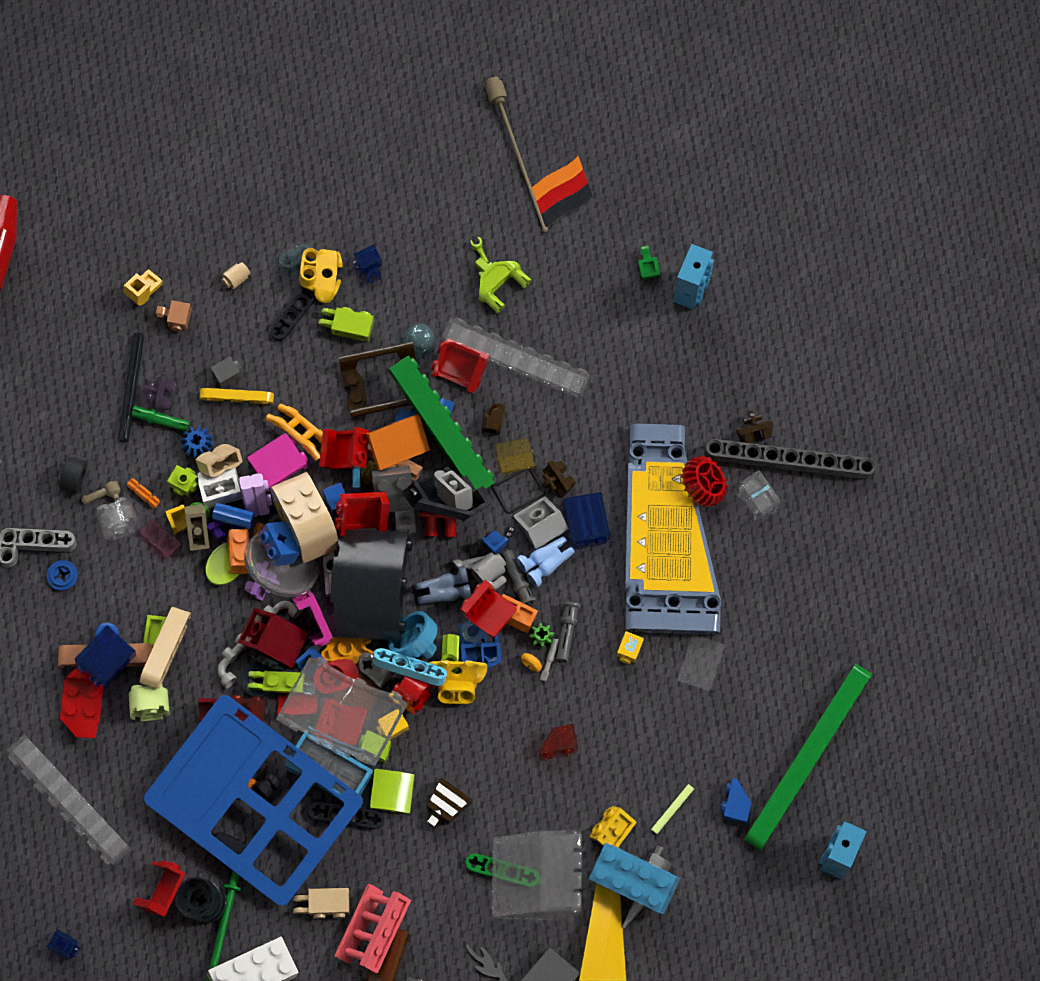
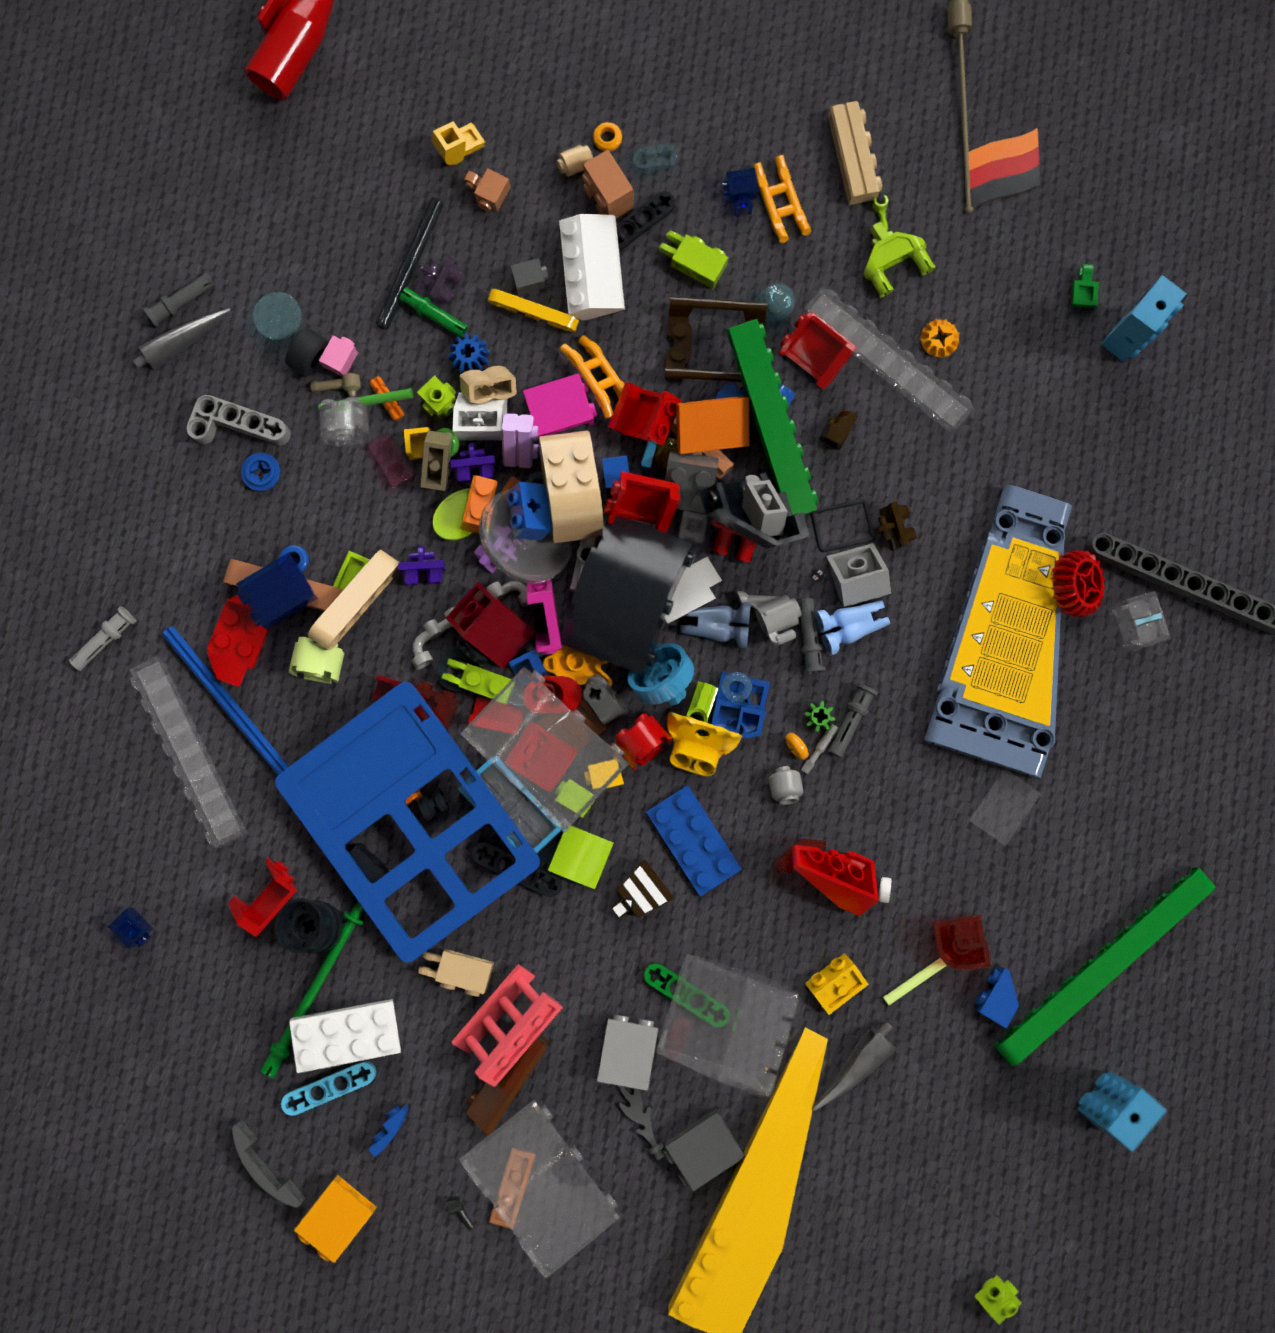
camera: 20 degrees right, 10 degrees up
(41, 454) = (277, 315): none -> clear light blue piece
(84, 754) = (225, 700): none -> blue axle
(97, 471) = (339, 355): none -> bright pink brick
(140, 493) = (384, 397): none -> bright green bar
(200, 614) = (433, 568): none -> dark purple hips
(233, 516) = (483, 459): blue axle -> none
(255, 258) = (611, 145): none -> light orange piece
(267, 289) = (607, 185): none -> nougat brick
(272, 350) = (591, 265): none -> white slope
(323, 288) = (677, 205): yellow piece -> none
(401, 250) = (785, 186): none -> light orange piece
(410, 665) = (643, 716): medium azure beam -> none
(419, 568) = (693, 589): none -> white sticker
(445, 212) = (853, 152): none -> tan brick
(470, 925) = (628, 1052): none -> light grey brick
(474, 755) = (694, 840): none -> blue plate
(488, 609) = (763, 669): red bracket -> none
(494, 542) = (795, 583): blue panel -> none
(515, 455) = (851, 482): clear yellow piece -> none
(523, 617) = (795, 680): orange hinge -> none
(531, 693) = (786, 785): none -> light grey head
(548, 338) = (935, 347): none -> light orange gear
(586, 520) = (916, 588): clear blue brick -> none
(595, 747) = (843, 878): none -> red wedge
(628, 748) = (884, 890): none -> white tile
(629, 648) = (923, 764): yellow brick -> none
(634, 878) = (847, 1061): dark azure brick -> none
(695, 768) = (961, 942): none -> clear red brick
(747, 431) = (1168, 535): dark brown hips -> none

